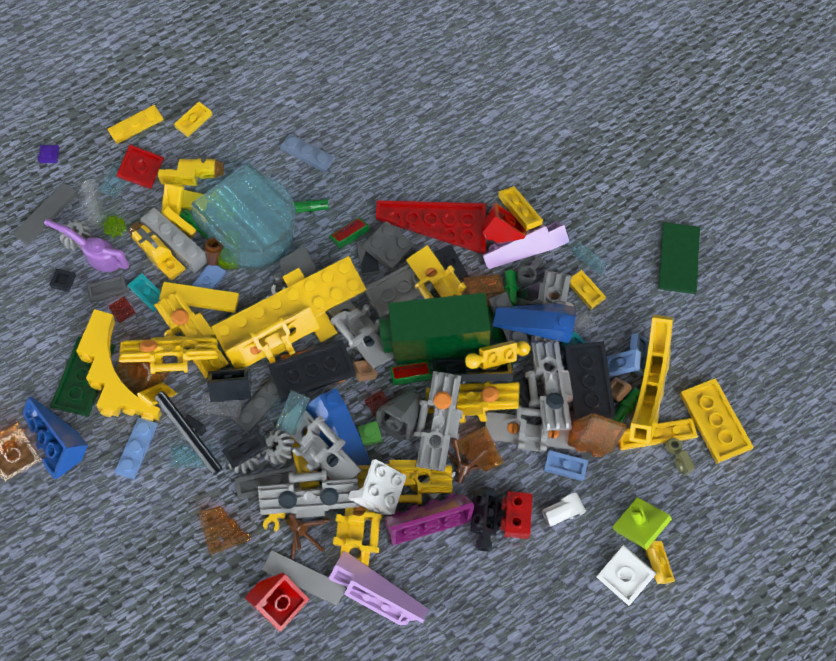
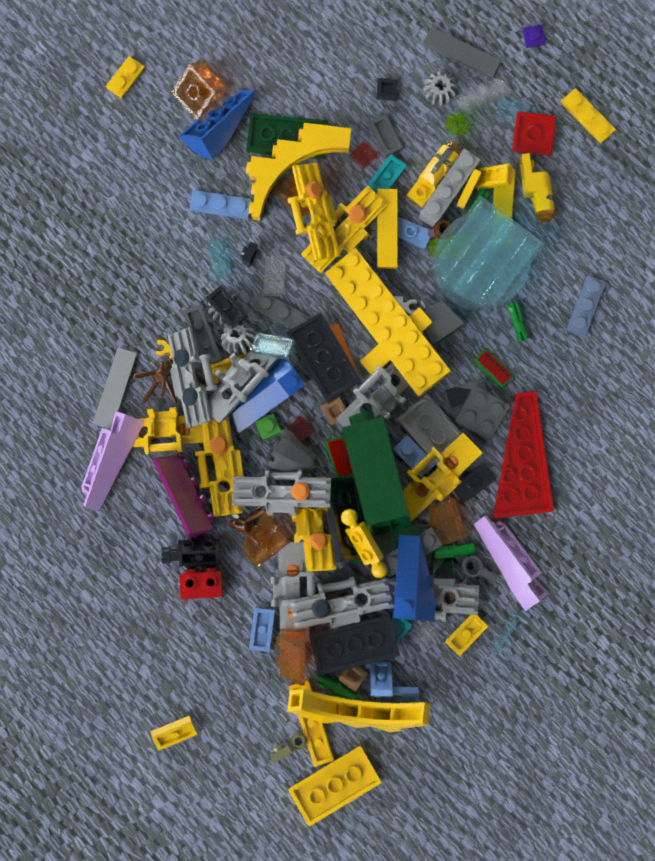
camera: 80 degrees right, 15 degrees up
(98, 252) = (421, 111): medium lavender piece -> none
(148, 395) = (275, 210): yellow tile -> none
(188, 432) = (237, 249): black axle -> none
(193, 119) = (604, 175): yellow plate -> none
(217, 523) = (156, 297): clear orange slope -> none
(229, 384) = (293, 278): black slope -> none
(274, 343) = (348, 312): yellow piece -> none
(277, 600) = (88, 366): red slope -> none
(380, 489) = (203, 444): white bracket -> none
(502, 226) = (526, 534): red slope -> none
(520, 208) = (553, 550): yellow plate -> none
(567, 508) = (216, 635): white piece -> none
(626, 575) = (156, 700): white tile -> none
(642, 523) = (210, 712): lime tile -> none
(679, 258) = (525, 736): dark green tile -> none

